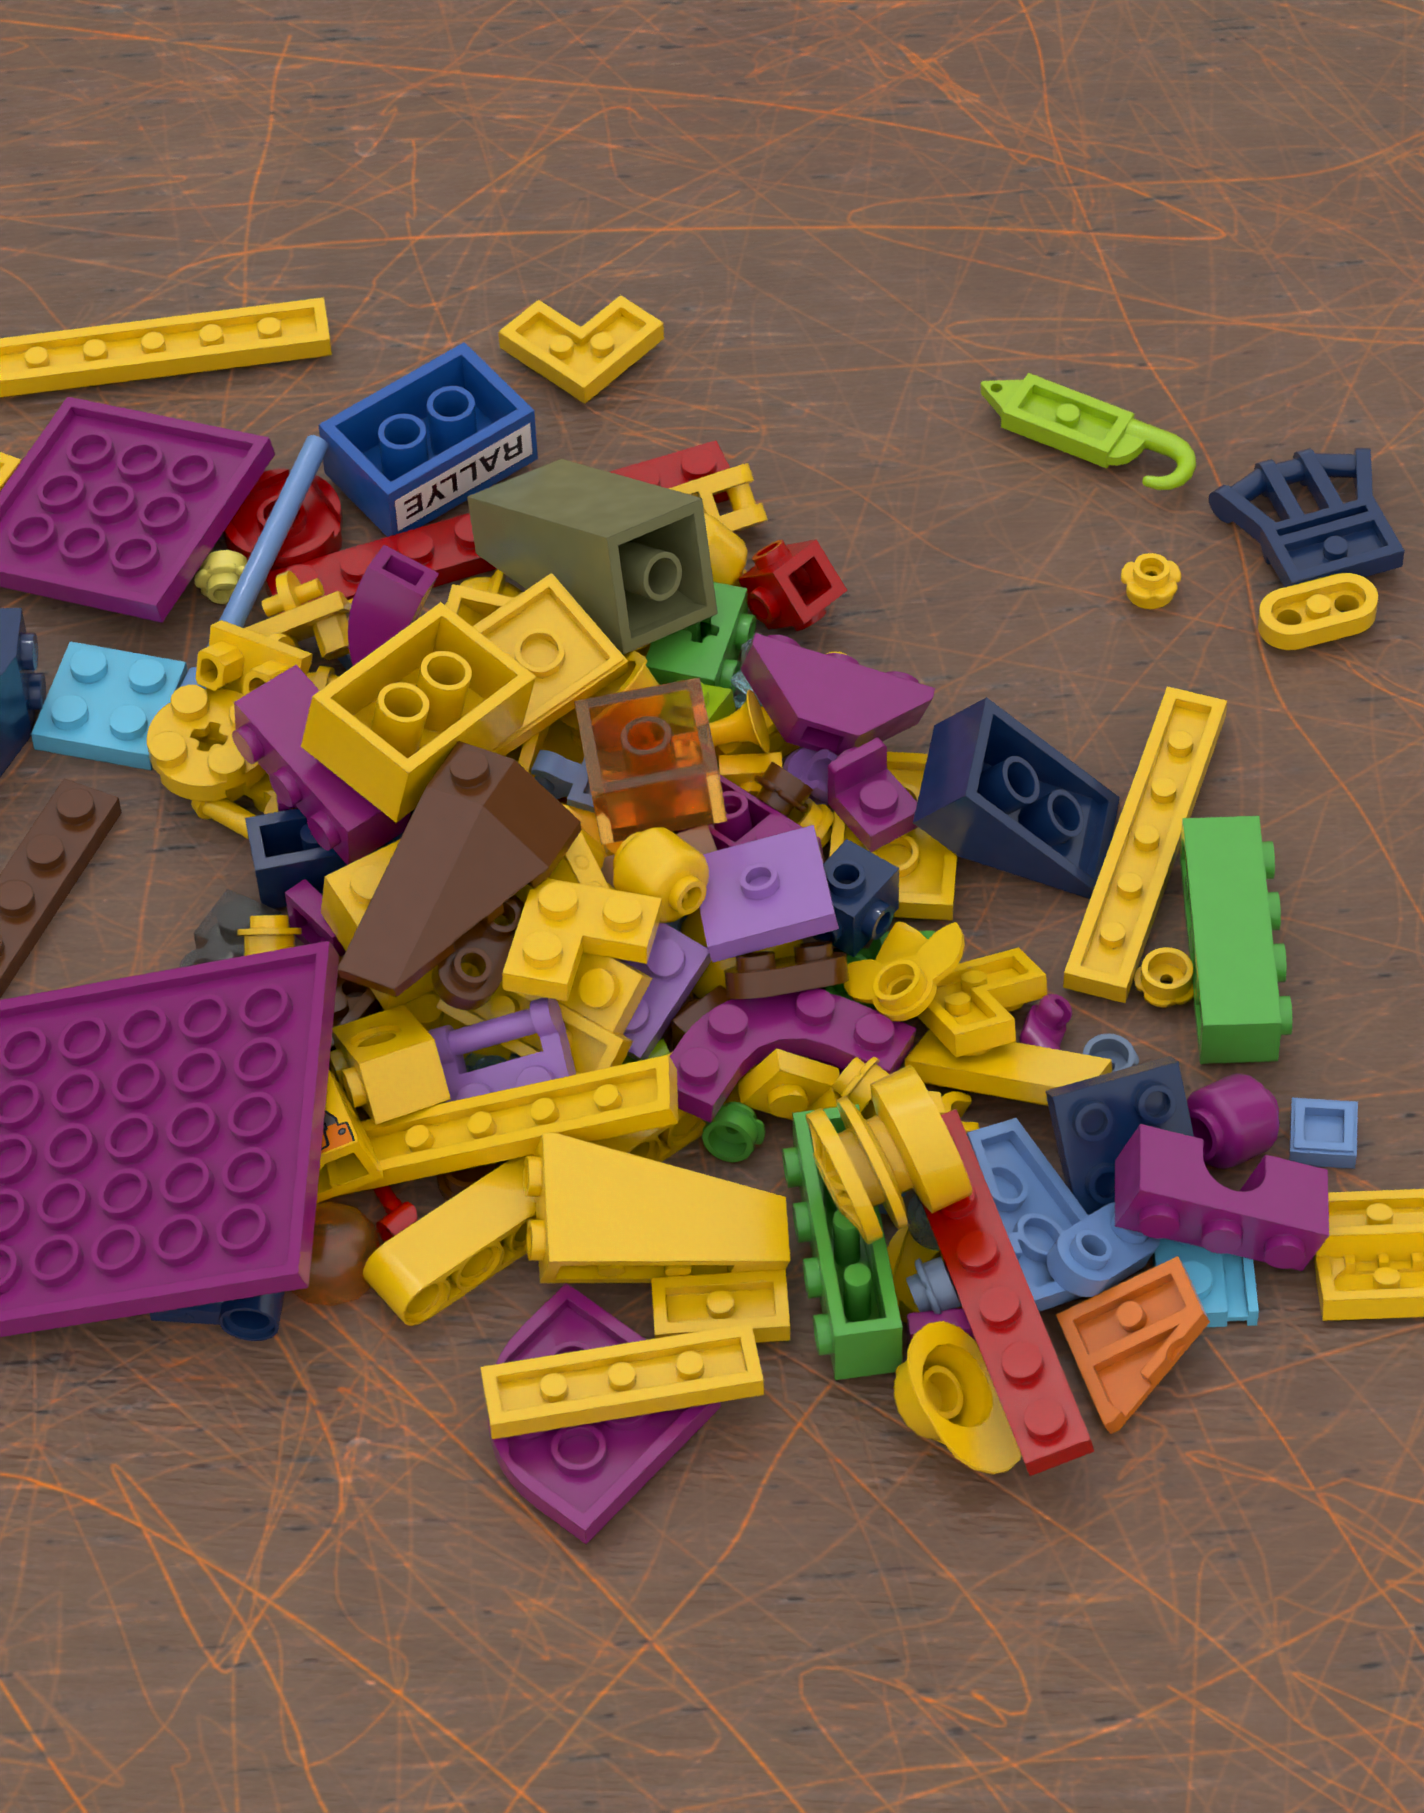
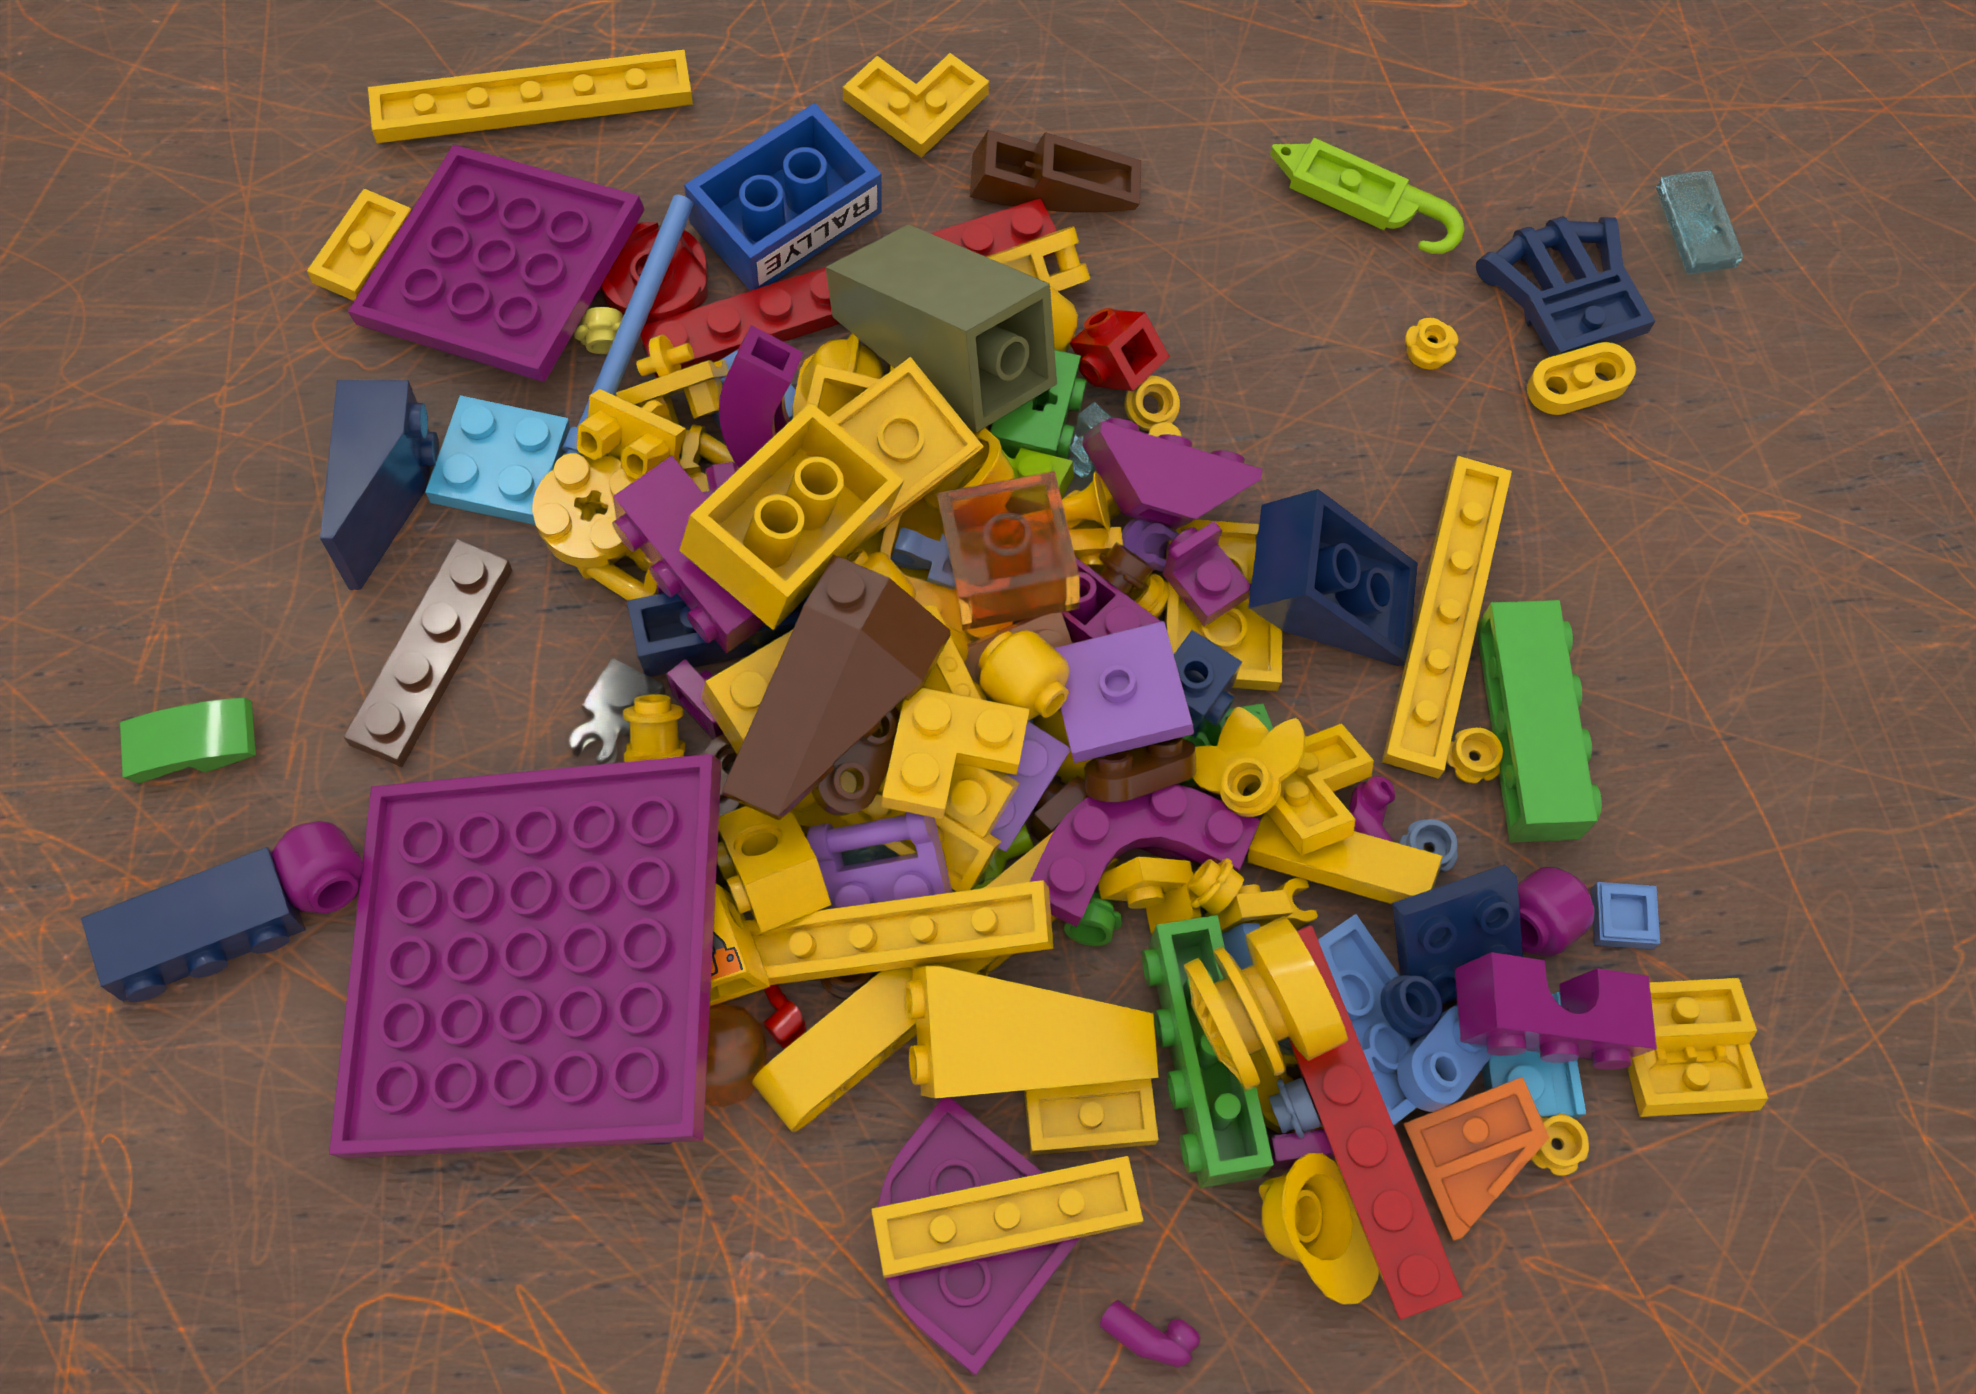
camera: 10 degrees left, 15 degrees up
(737, 412) = (1057, 170): none -> reddish brown slope
(789, 1517) = (1146, 1340): none -> magenta arm
(831, 625) = (1165, 395): none -> yellow plate
(1065, 1193) = (1411, 1005): none -> dark blue plate
(1231, 1325) = (1573, 1150): none -> yellow plate

